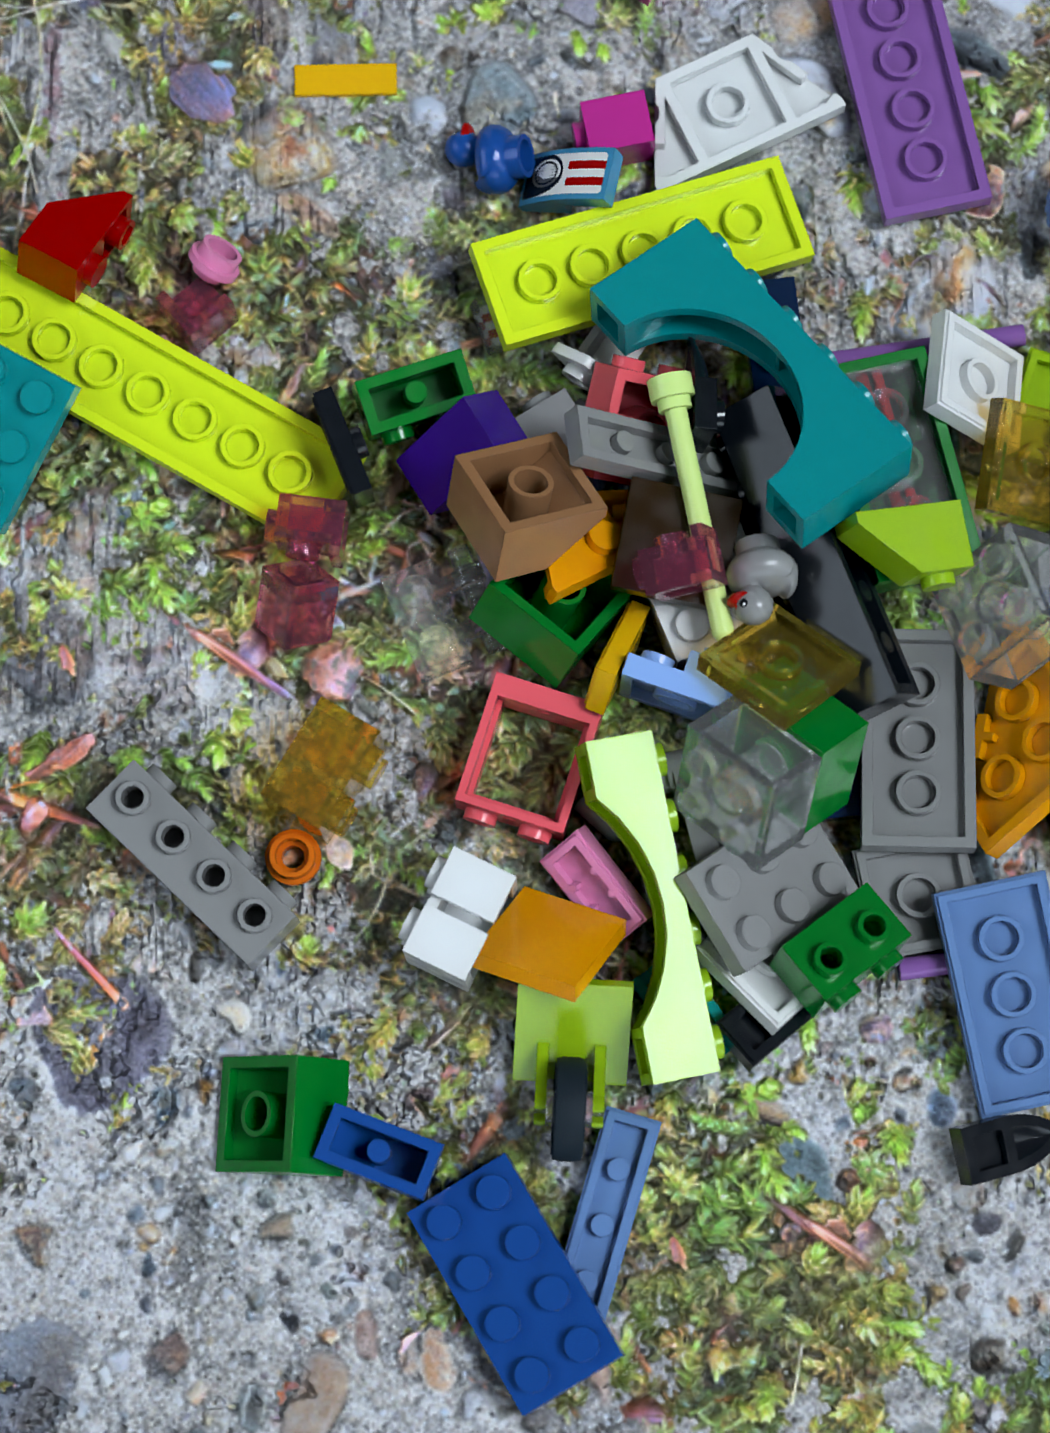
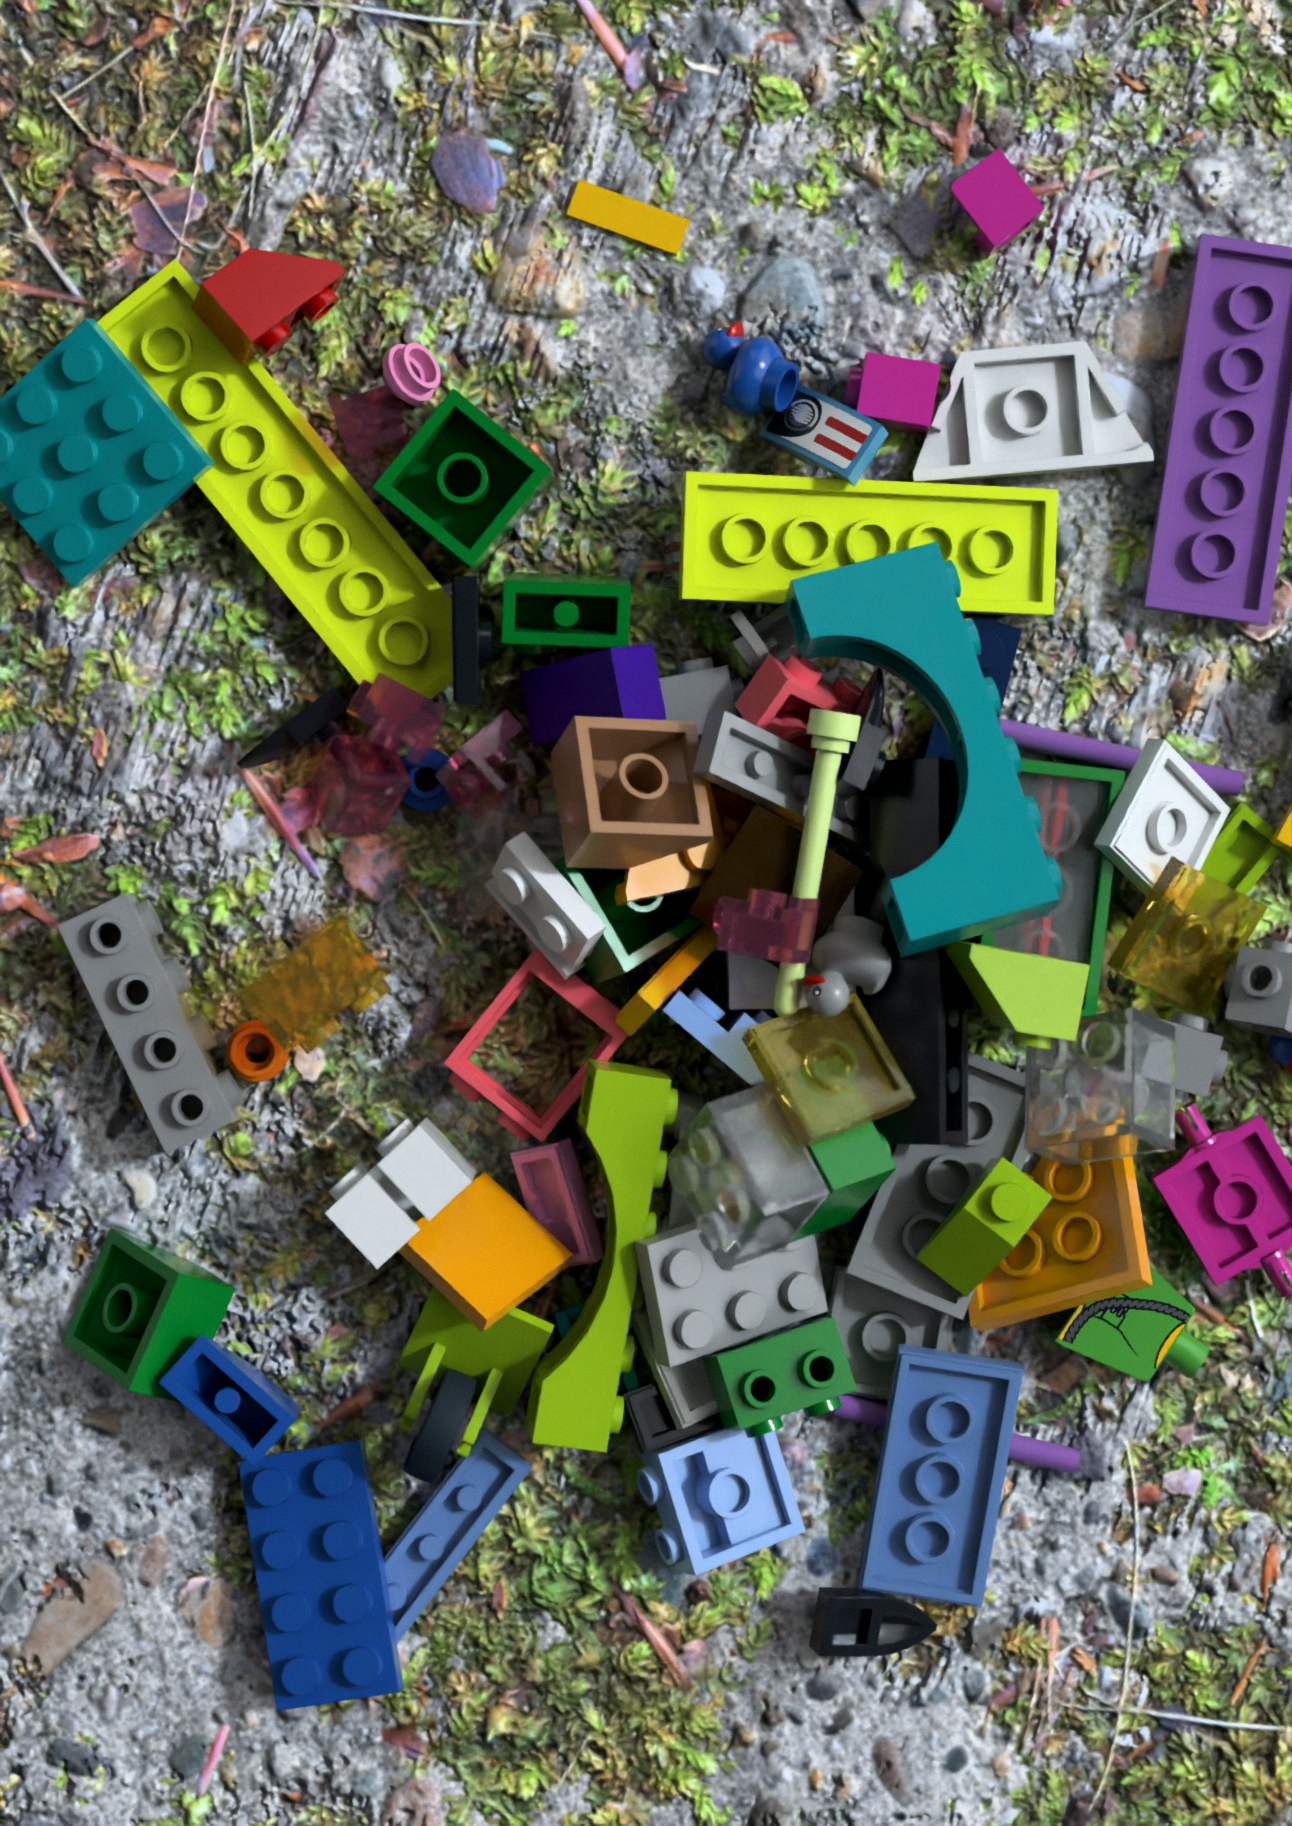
camera: 15 degrees right, 10 degrees up
(239, 568) = (315, 723): none -> black plate
(291, 324) = (463, 481): none -> green brick
(369, 585) = (430, 800): none -> blue plate
(389, 546) = (472, 769): none -> clear pink bracket
(490, 630) = (545, 905): none -> white plate
(831, 1081) = (718, 1498): none -> light blue plate
(962, 757) = (984, 1225): none -> lime slope

